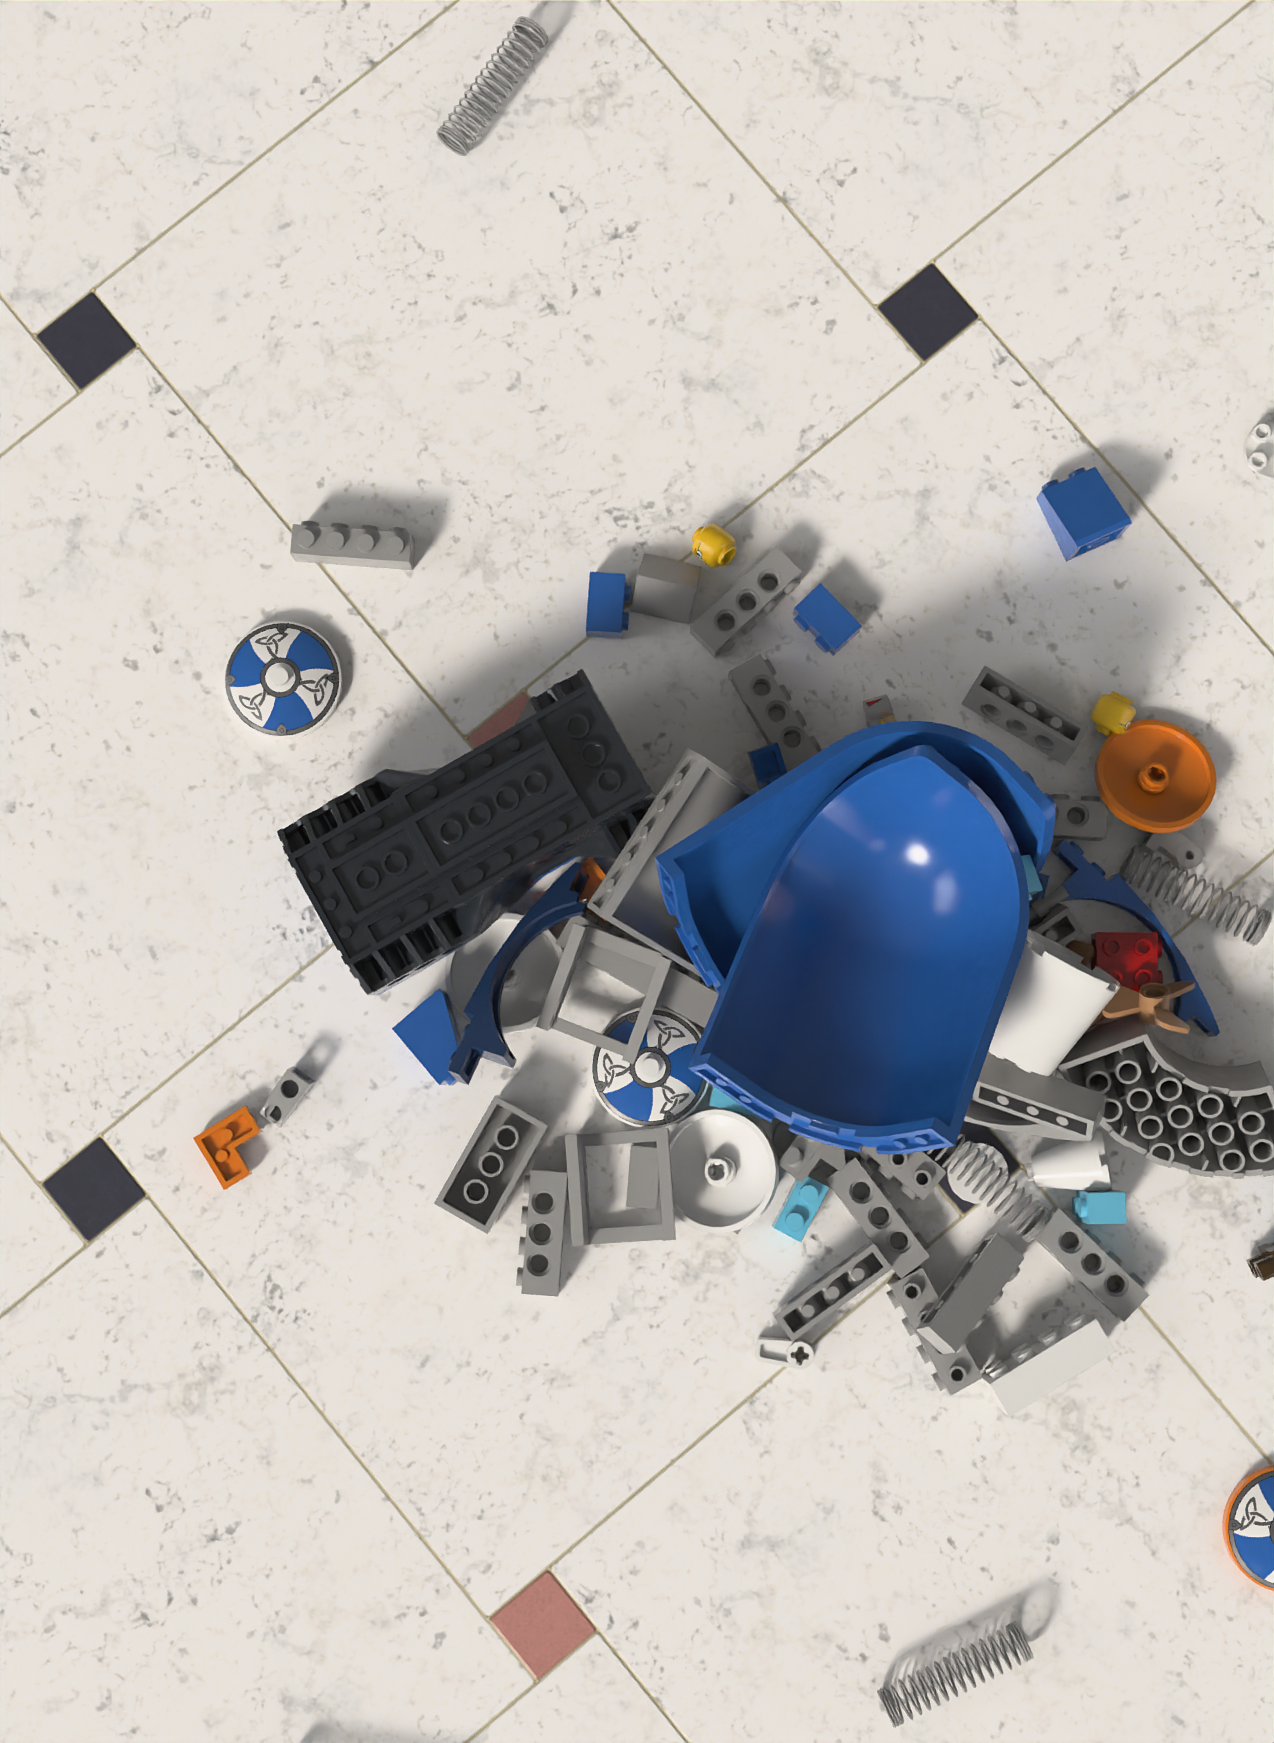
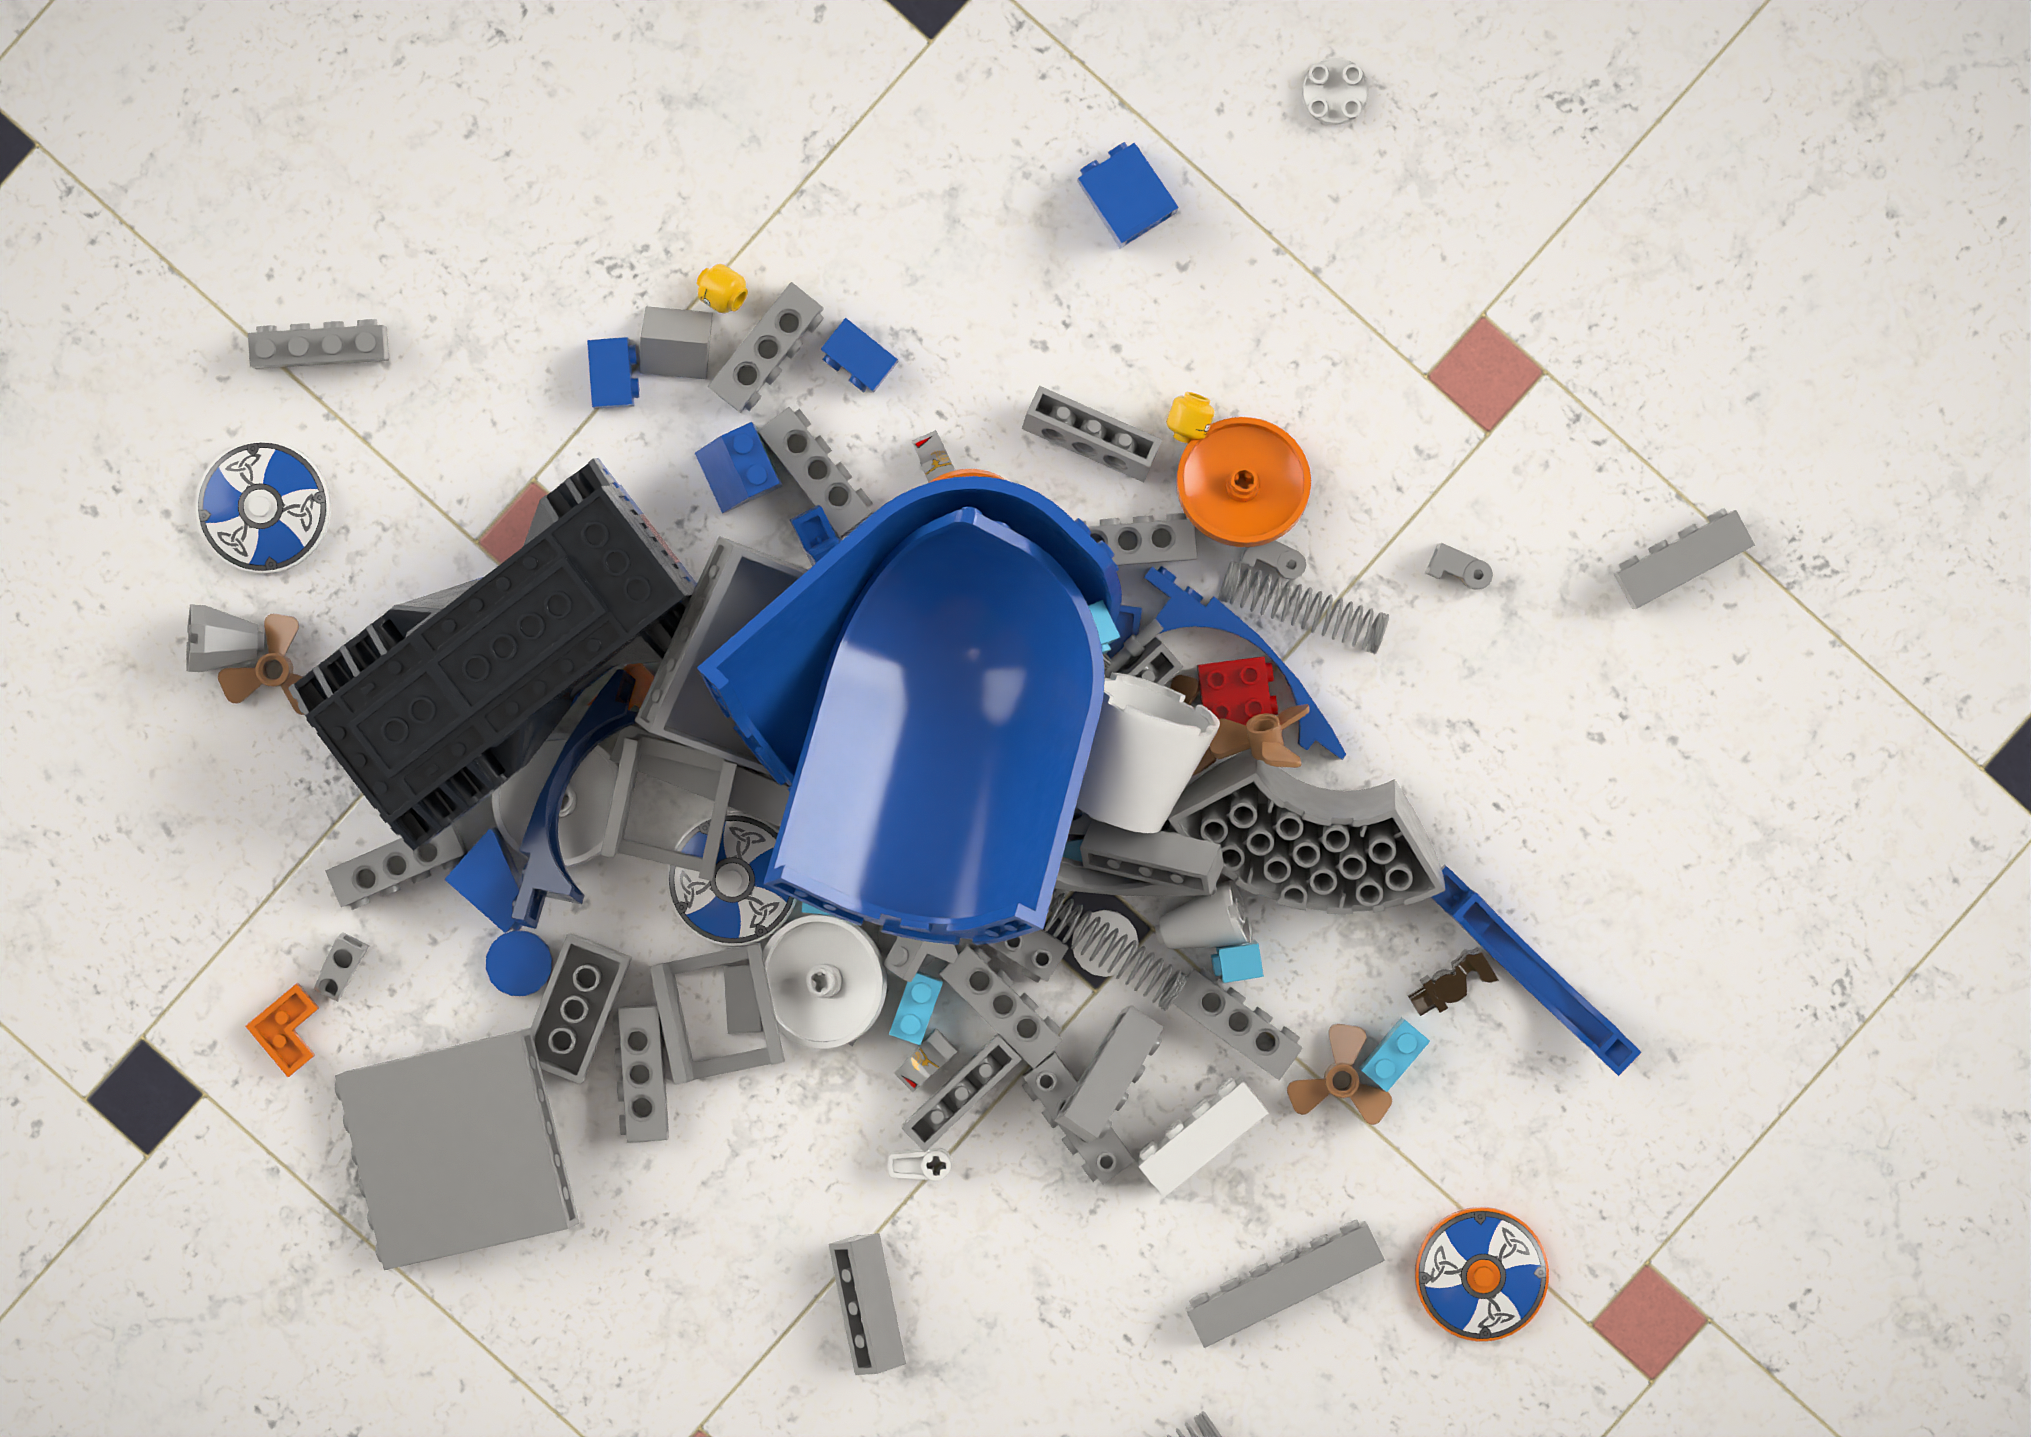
camera: 10 degrees left, 5 degrees up
(226, 789) = (219, 639): none -> light grey cone
(240, 830) = (242, 682): none -> medium nougat piece
(304, 1015) = (345, 876): none -> light grey brick
(366, 1278) = (456, 1149): none -> light grey panel
(447, 1116) = (519, 963): none -> blue tile
(708, 700) = (738, 467): none -> blue slope
(719, 1476) = (867, 1295): none -> light grey brick
(801, 1257) = (925, 1060): none -> light grey leg
(1104, 1511) = (1284, 1283): none -> light grey brick
(1186, 1299) = (1345, 1044): none -> medium nougat piece
(1230, 1312) = (1394, 1054): none -> medium azure brick

